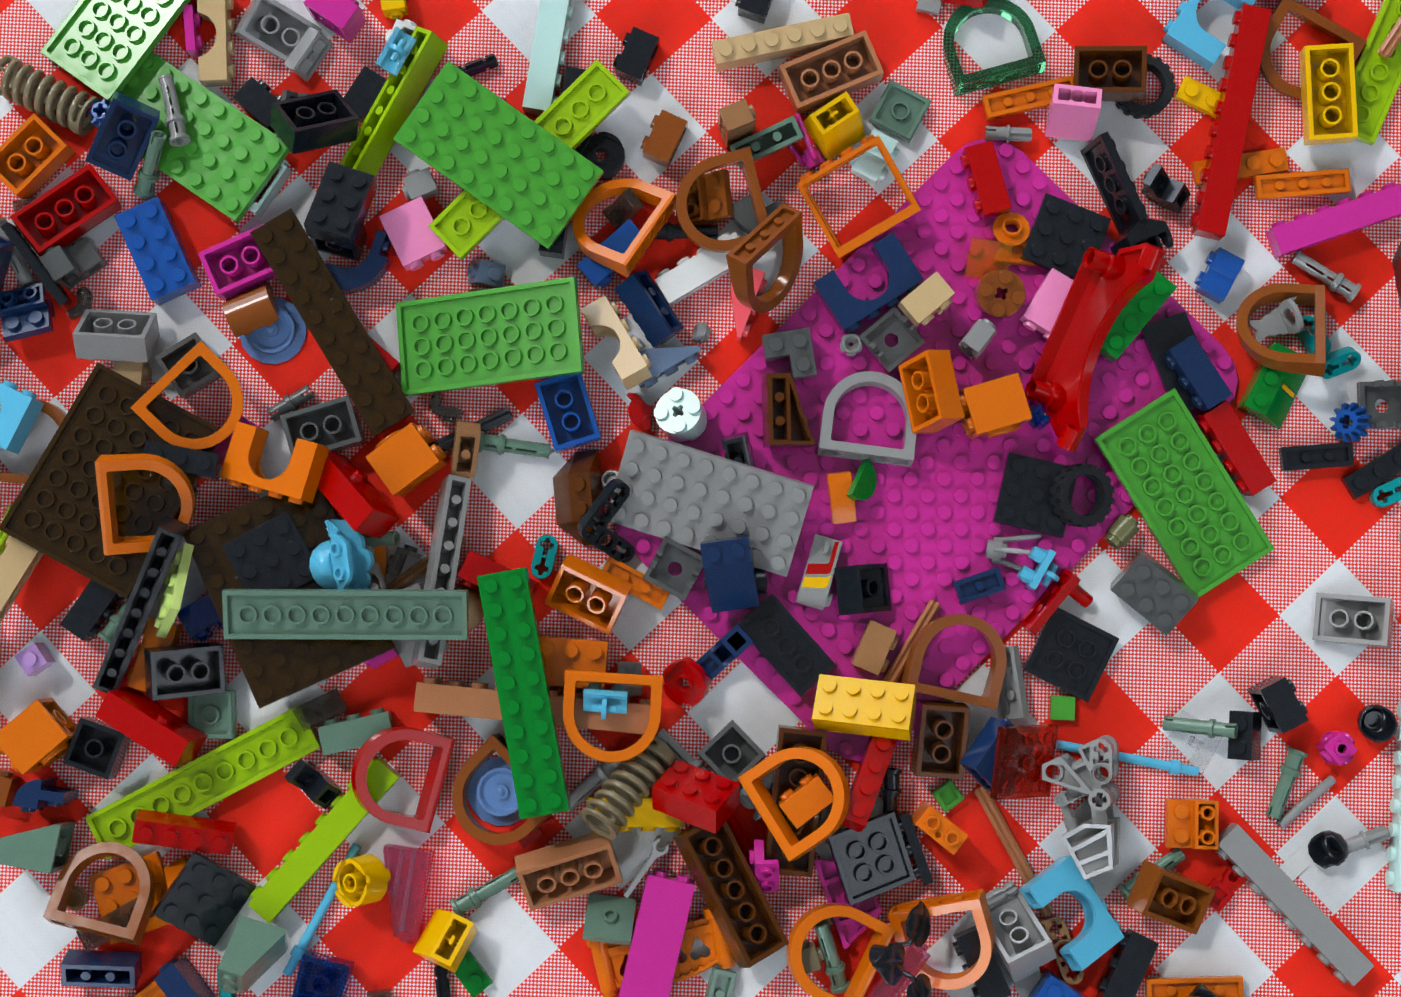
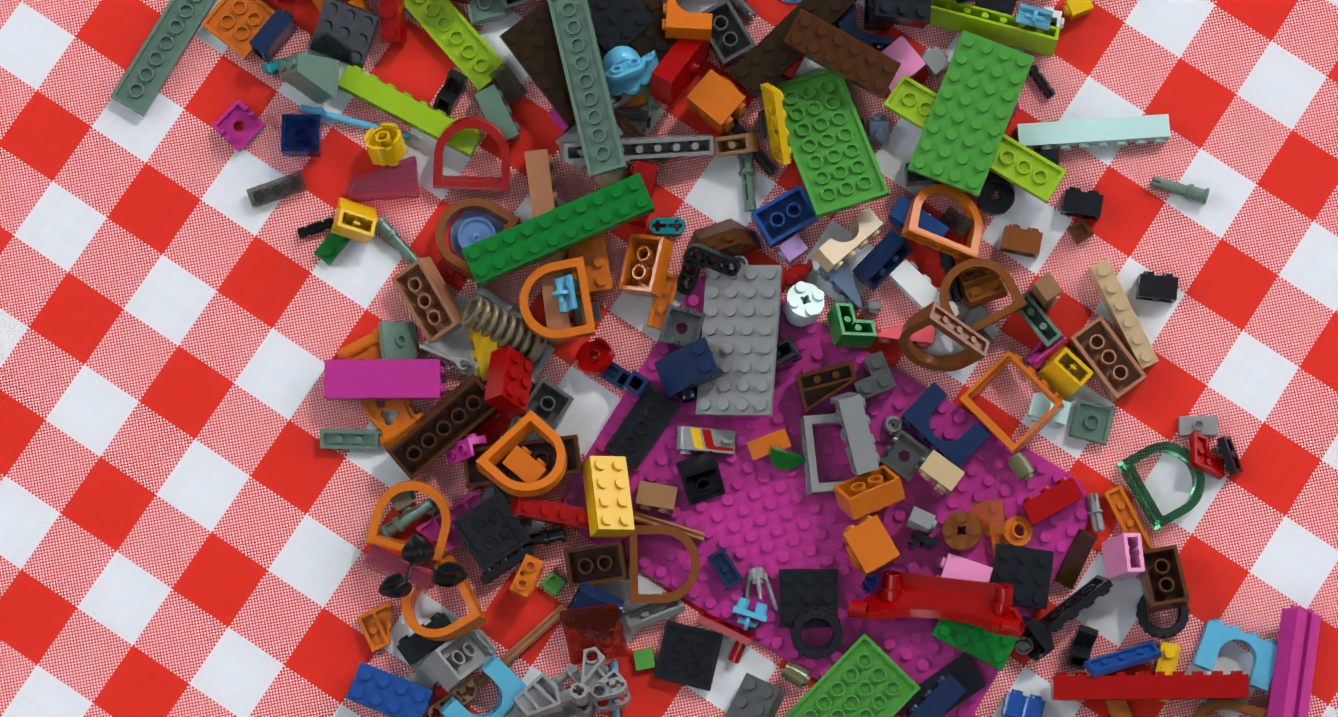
camera: 75 degrees right, 5 degrees down
(384, 294) = (840, 53): none -> reddish brown brick
(452, 394) = (775, 122): none -> yellow plate
(609, 413) = (792, 249): none -> lavender brick
(669, 67) = (1080, 231): none -> reddish brown plate
(724, 371) = (847, 330): none -> green brick
(854, 389) = (856, 432): none -> light grey wedge
(937, 205) = (1021, 467): none -> olive brick
(1001, 339) = (926, 541): none -> black bracket
(1057, 171) = (1075, 559): none -> dark brown tile
(1191, 145) = (1122, 659): none -> blue tile

